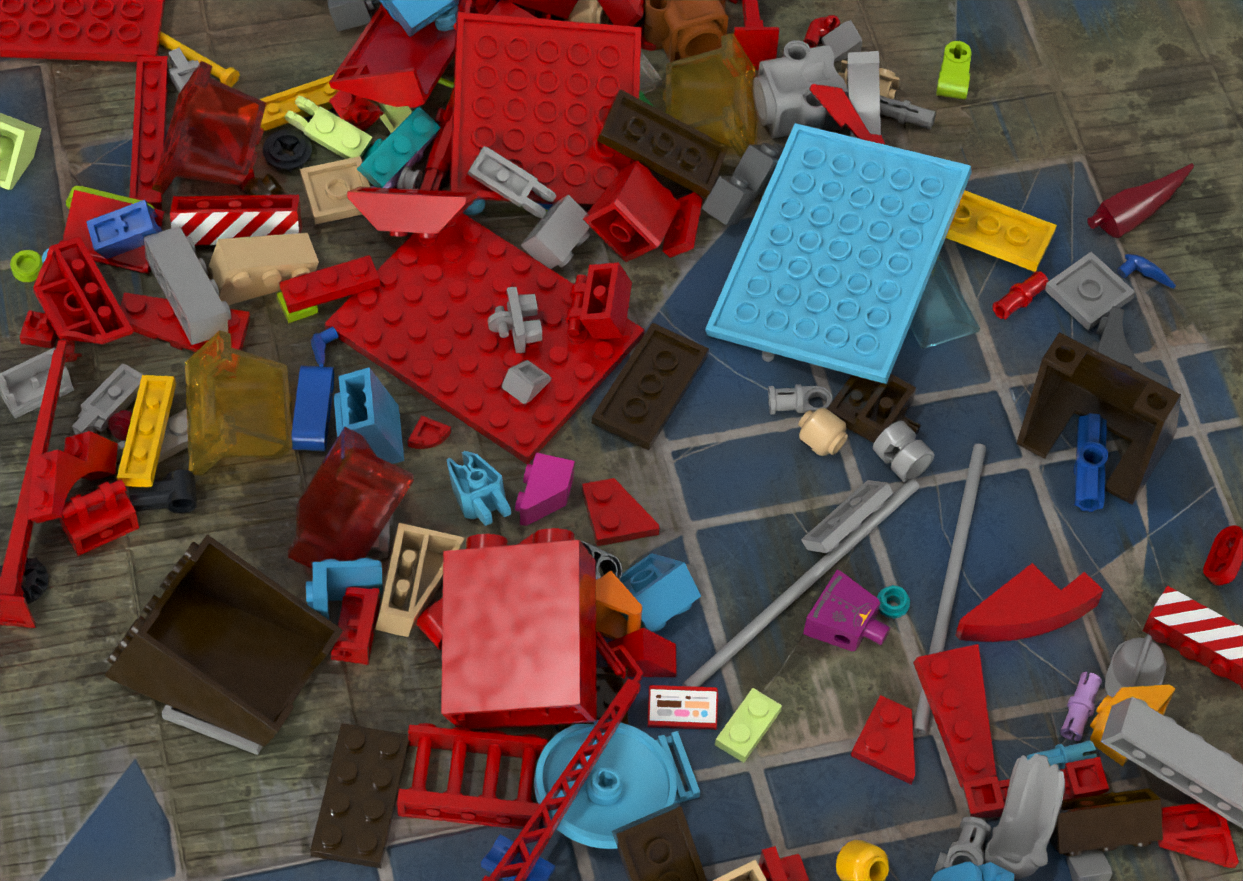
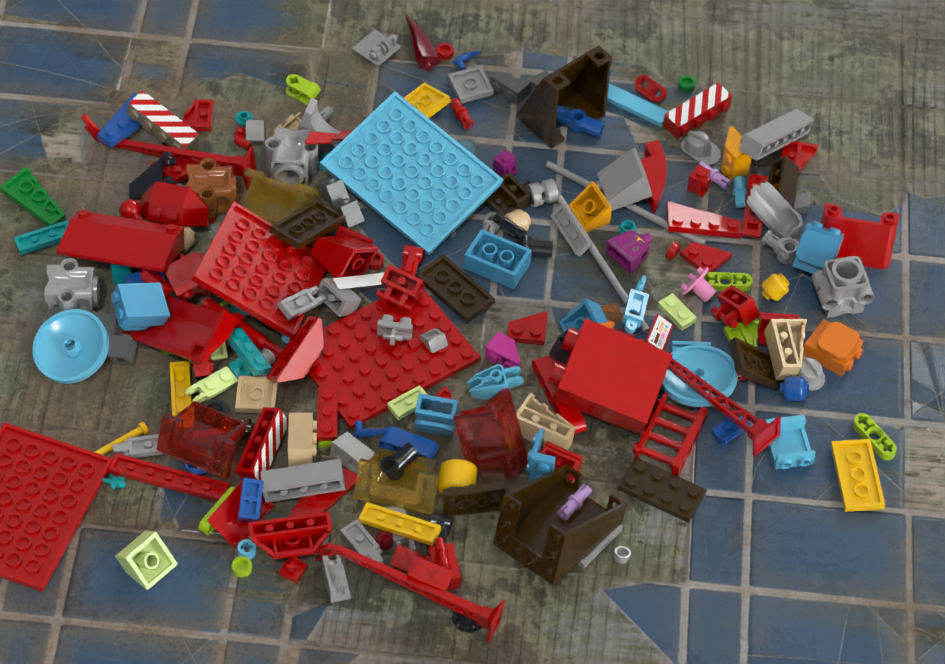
camera: 70 degrees left, 5 degrees down
(122, 73) = (115, 481): none -> teal plant
(209, 768) = (621, 554): none -> light grey hinge
(227, 511) = (473, 499): none -> dark brown plate
(260, 396) = (394, 465): none -> black piece
(263, 488) = (456, 473): none -> yellow head
(273, 333) = (350, 451): none -> light grey hinge
(277, 664) = (574, 502): none -> lavender pin
(404, 388) = (406, 403): none -> yellowish green plate
(601, 253) = (358, 281): none -> white sticker
(662, 266) = (378, 262): none -> red tile
(685, 310) = (411, 259): none -> red piece
(699, 623) = (612, 312): none -> clear orange tile
(725, 652) = (635, 303): none -> medium azure piece
(728, 423) = (497, 259): none -> dark azure brick
(730, 841) = (745, 333): none -> lime wing
(779, 807) = (735, 306): none -> red brick
(782, 465) = (539, 247): none -> black piece
(798, 416) = (509, 225): none -> black axle
(808, 739) = (699, 285): none -> bright pink piece
(844, 799) = (738, 277): none -> lime beam
(863, 21) = (241, 118): none -> teal plate
(873, 682) = (673, 251): none -> red tile
(906, 534) = (591, 208): none -> light orange slope
(936, 384) = (505, 163): none -> magenta brick
(973, 559) = (624, 181): none -> light grey slope
(1051, 684) = (699, 181): none -> red brick
(1100, 145) = (377, 47): none -> light grey hinge
(1146, 238) = (445, 51): none -> red tile
(1184, 512) = (636, 105): none -> medium azure tile

